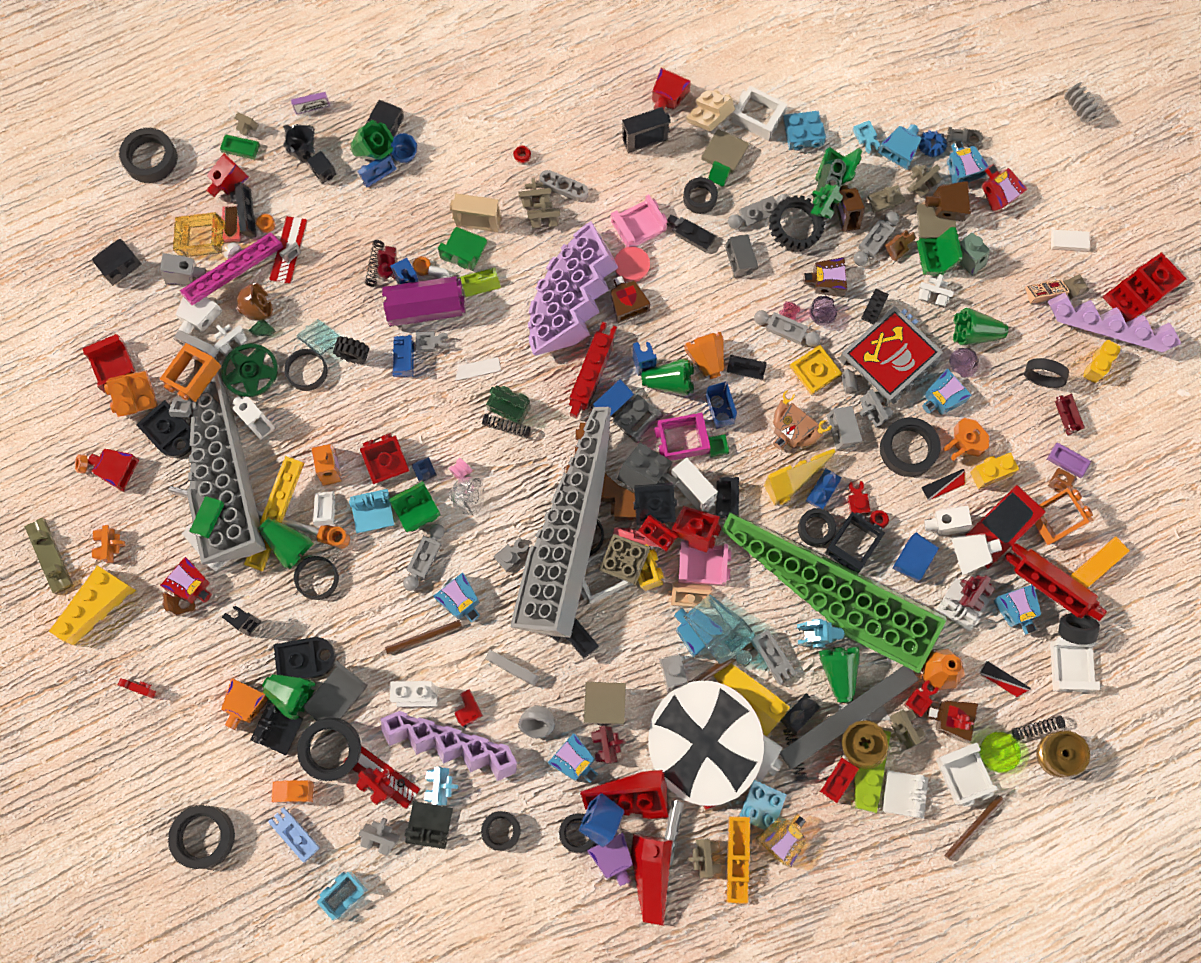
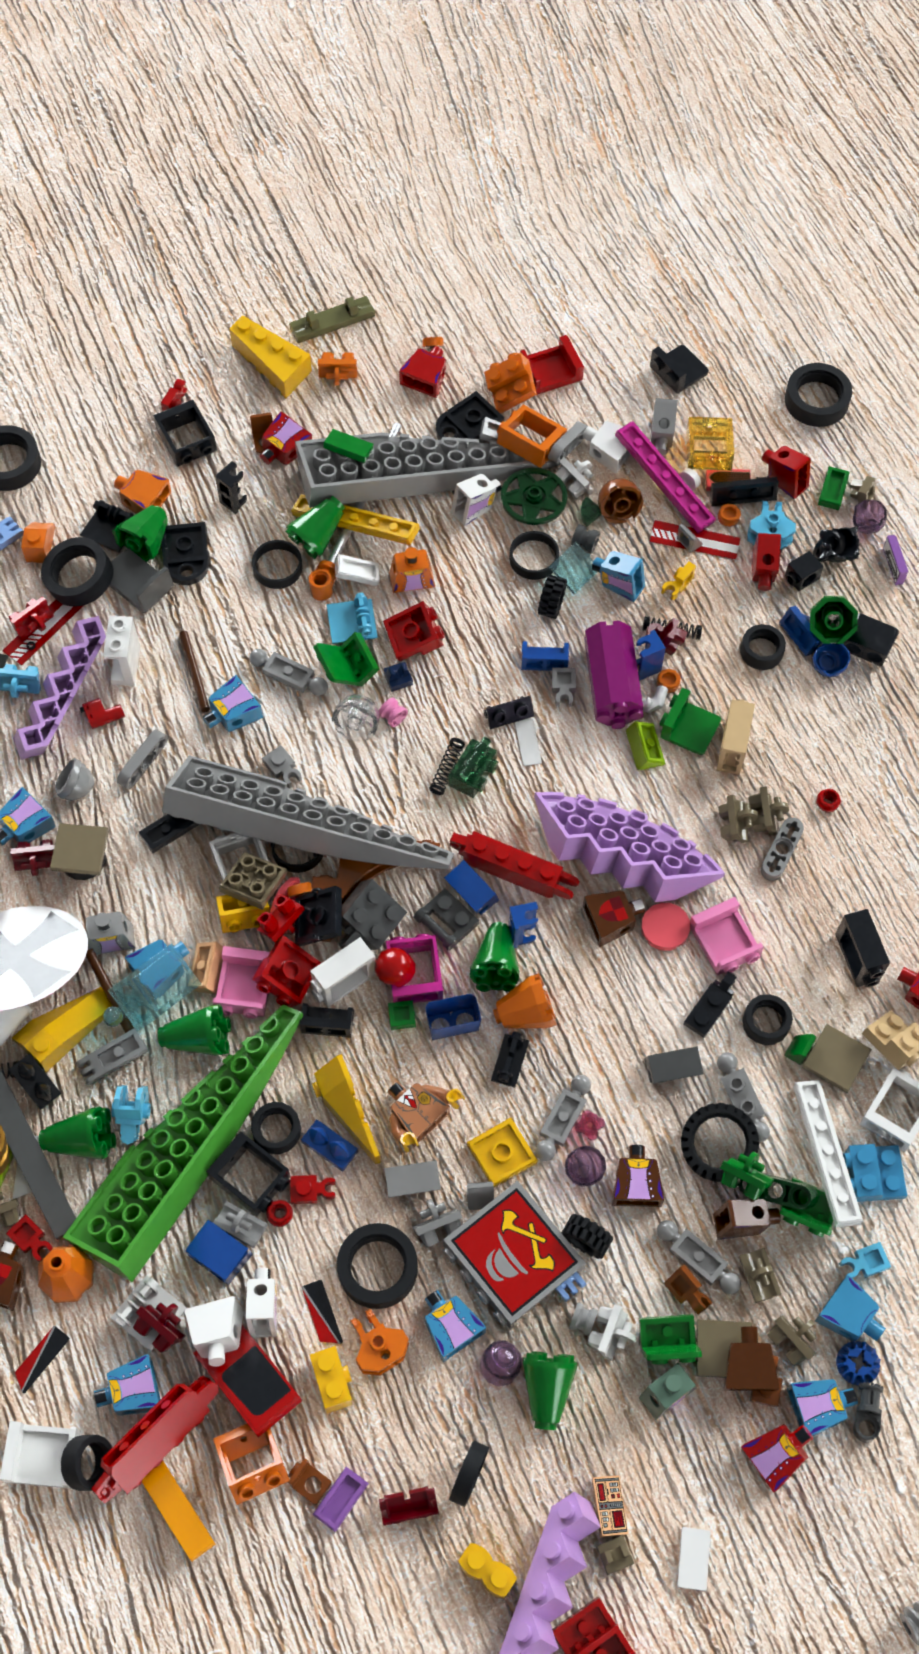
camera: 90 degrees right, 10 degrees down
(159, 683) = (187, 413): none -> black window
(271, 118) = (869, 516): none -> clear purple hair
(282, 189) = (772, 523): none -> medium azure hinge
(291, 329) = (585, 538): none -> dark grey wheel
(314, 192) = (766, 560): none -> red torso
(327, 299) = (621, 574): none -> dark azure torso
(330, 255) = (682, 577): none -> yellow plate
(388, 185) = (765, 632): none -> black tyre
(452, 374) = (509, 712): none -> black hinge
(629, 522) = (299, 889): none -> orange tile
(689, 446) = (394, 967): none -> red hair
(750, 592) = (198, 1032): none -> green cone
(796, 156) = (827, 1154): none -> white tile
(894, 544) = (240, 1224): none -> light grey hips
(929, 309) = (583, 1319): none -> light grey wheel

